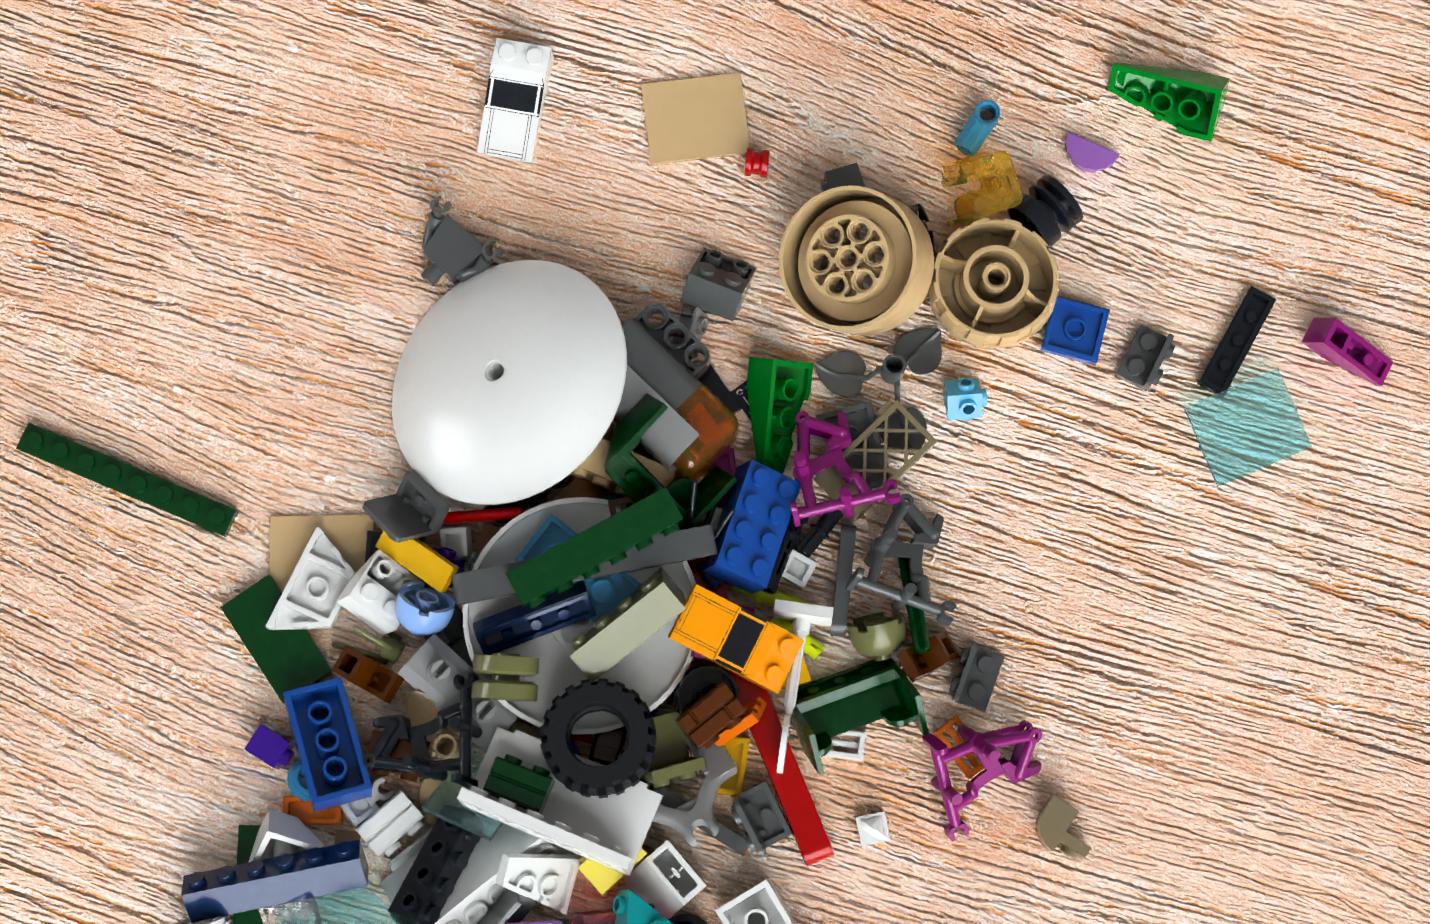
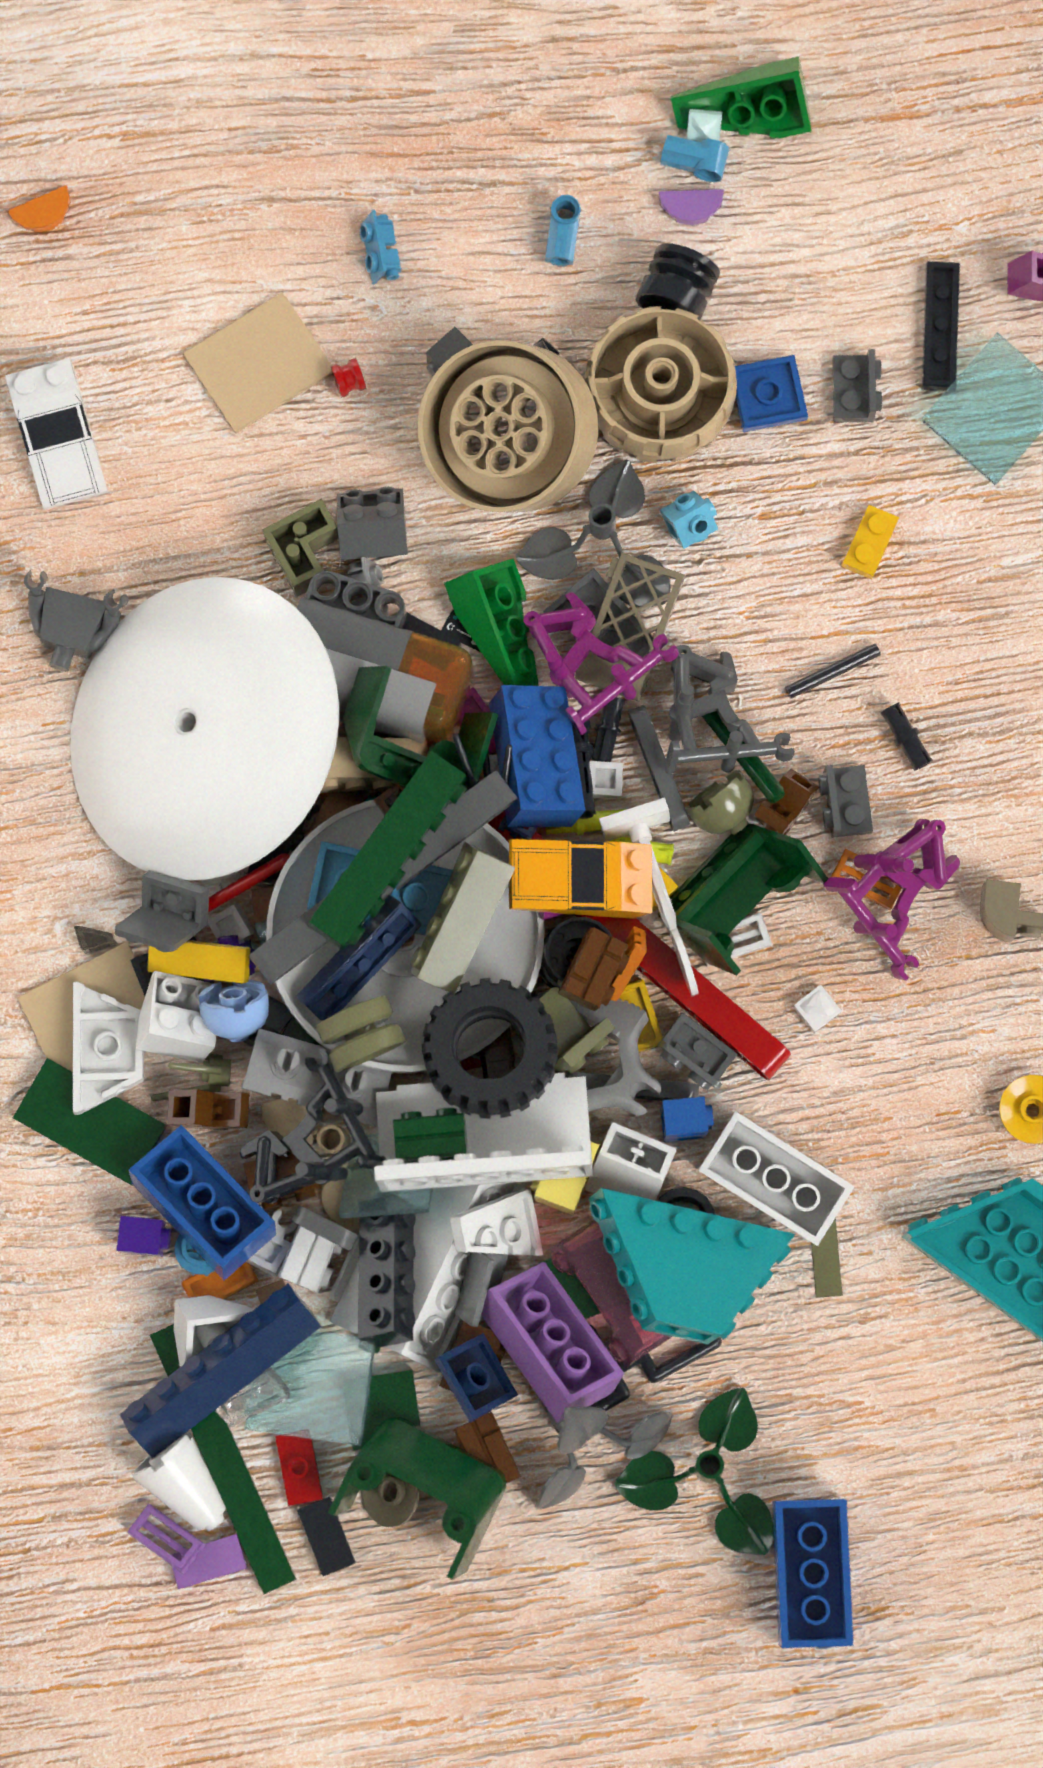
camera: 25 degrees left, 0 degrees up
(346, 501) = (94, 940): none -> clear smoke slope
(407, 811) = (324, 1228): none -> dark grey beam
(655, 268) = (296, 540): none -> olive brick
(726, 865) = (685, 1119): none -> blue brick
(833, 62) = (377, 234): none -> dark azure hinge
(998, 189) = (613, 276): clear yellow animal -> none
(1016, 570) = (832, 671): none -> black bar
(1048, 650) = (906, 736): none -> black pin
(1096, 484) = (870, 542): none -> yellow plate
(1115, 122) = (703, 158): none -> dark azure piece
(1128, 99) = (703, 125): none -> light aqua tile

